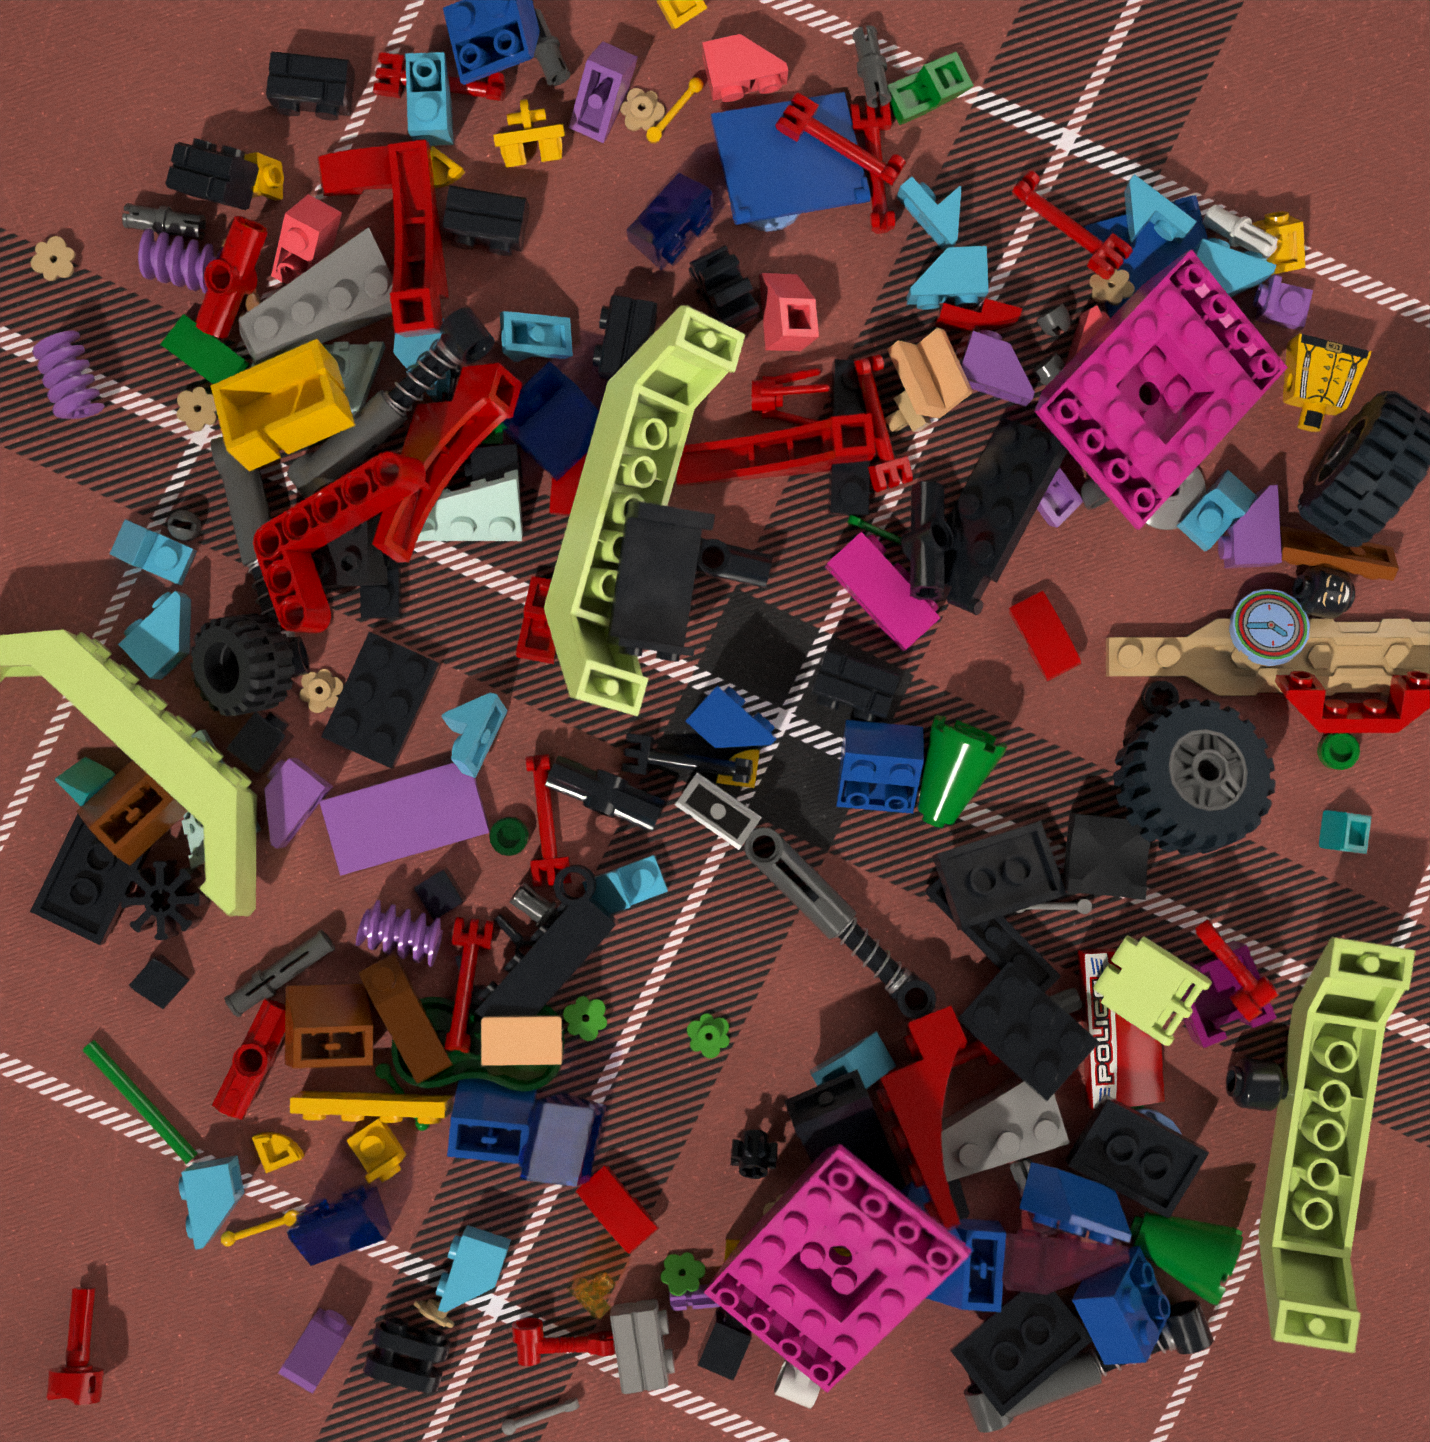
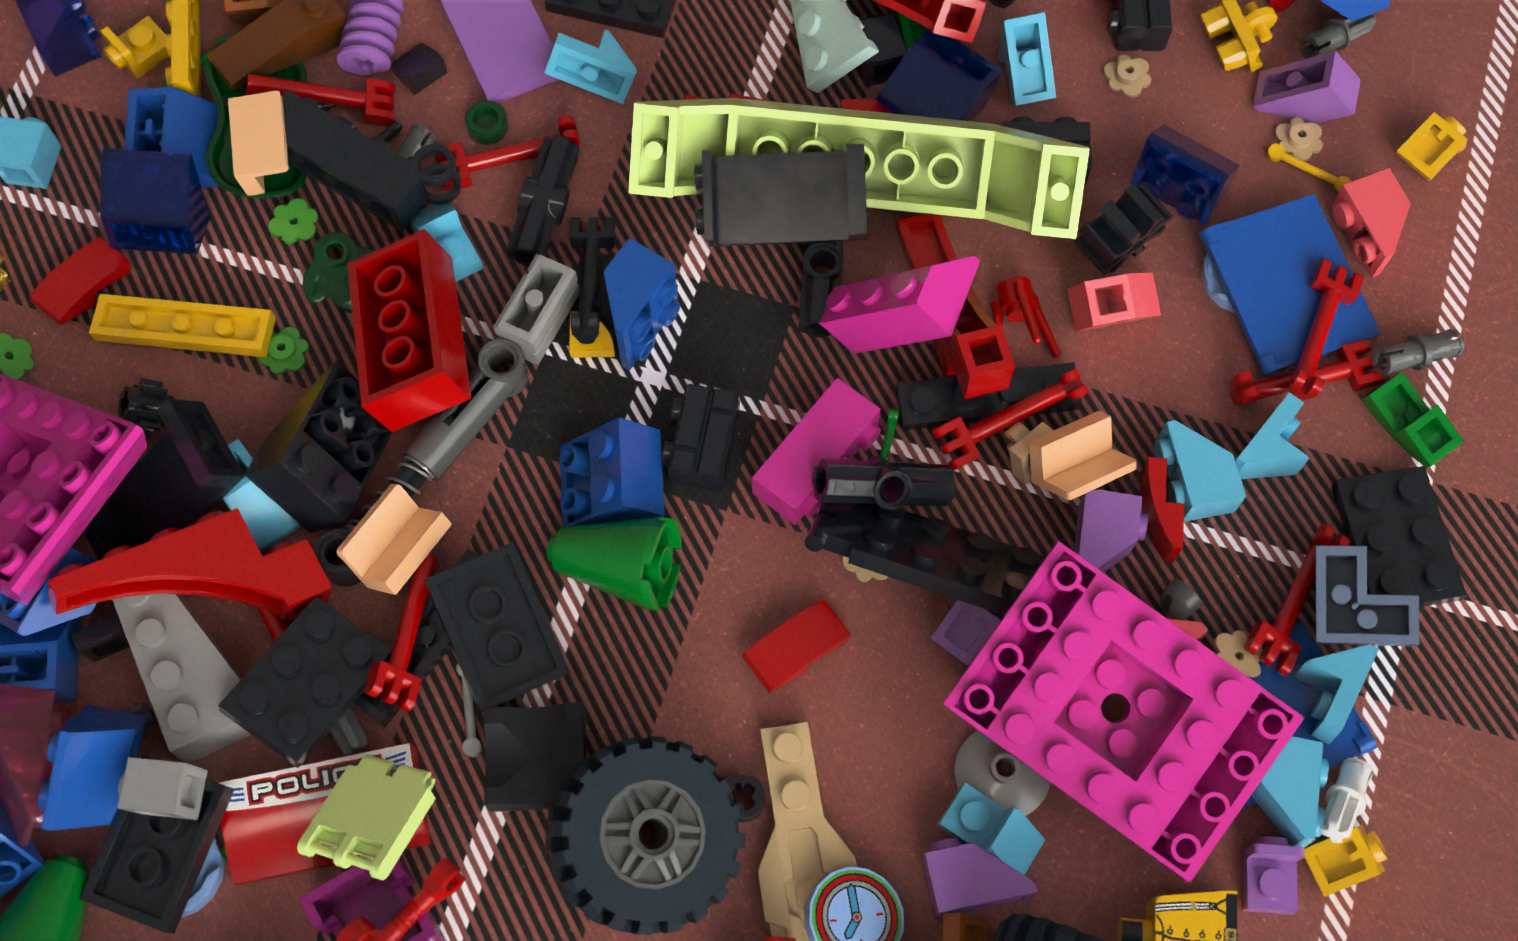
camera: 85 degrees right, 20 degrees down
(556, 256) = (1127, 75): none -> tan plant
(651, 974) = (330, 276): none -> dark green plate
(677, 1120) = (182, 325): none -> yellow plate
(730, 923) = (408, 331): none -> red brick
(773, 494) = (899, 306): none -> dark pink slope
(825, 1003) = (321, 453): none -> black slope
(915, 951) = (392, 540): none -> light nougat panel
(1029, 130) = (1403, 535): none -> black plate
(1039, 961) = (393, 676): none -> red hinge
(1100, 184) = (1351, 616): none -> sand blue brick
(1108, 1148) = (162, 788): none -> light grey brick

